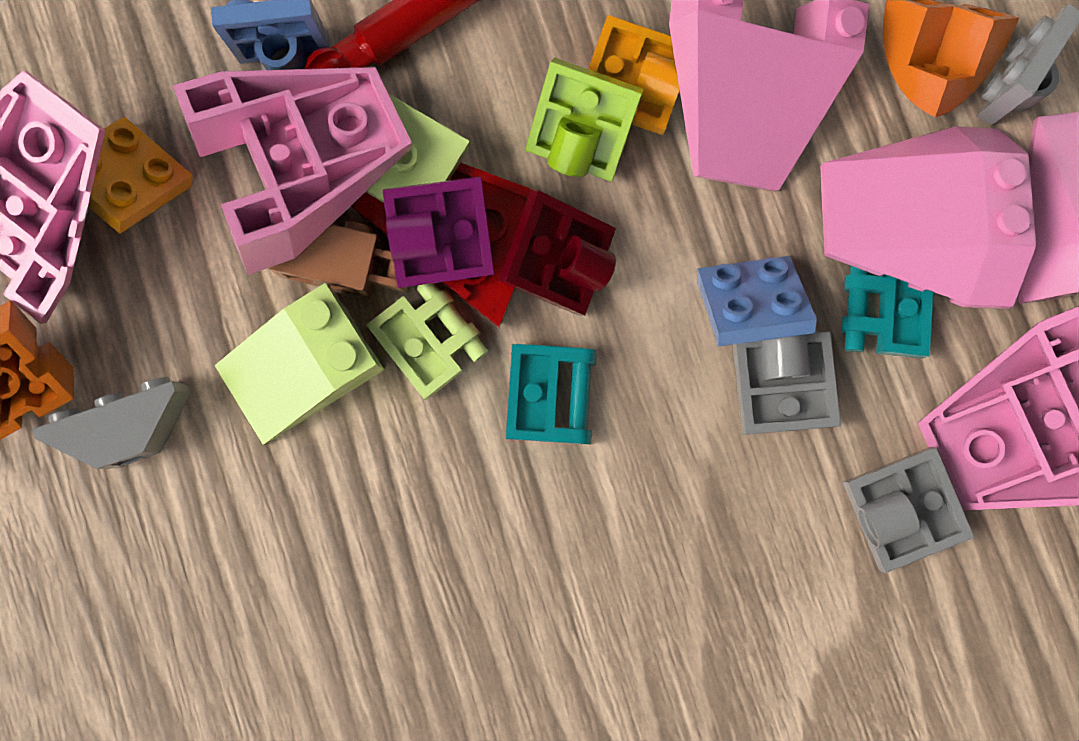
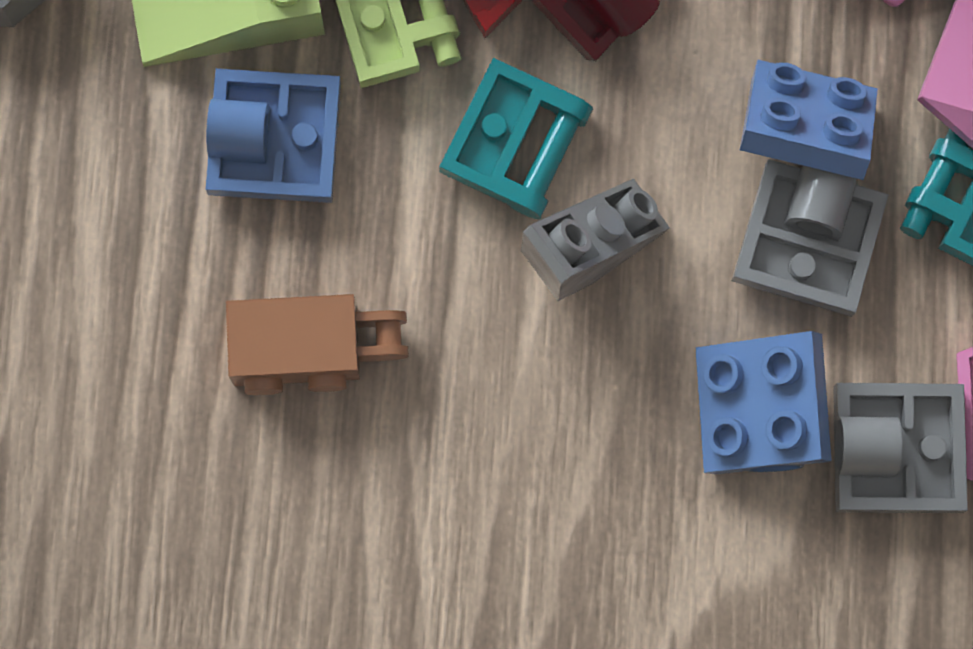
camera: 20 degrees right, 5 degrees down
(377, 461) = (272, 135): none -> medium blue plate
(461, 605) = (305, 342): none -> nougat brick
(637, 448) = (592, 238): none -> light grey slope
(804, 520) = (763, 404): none -> medium blue plate

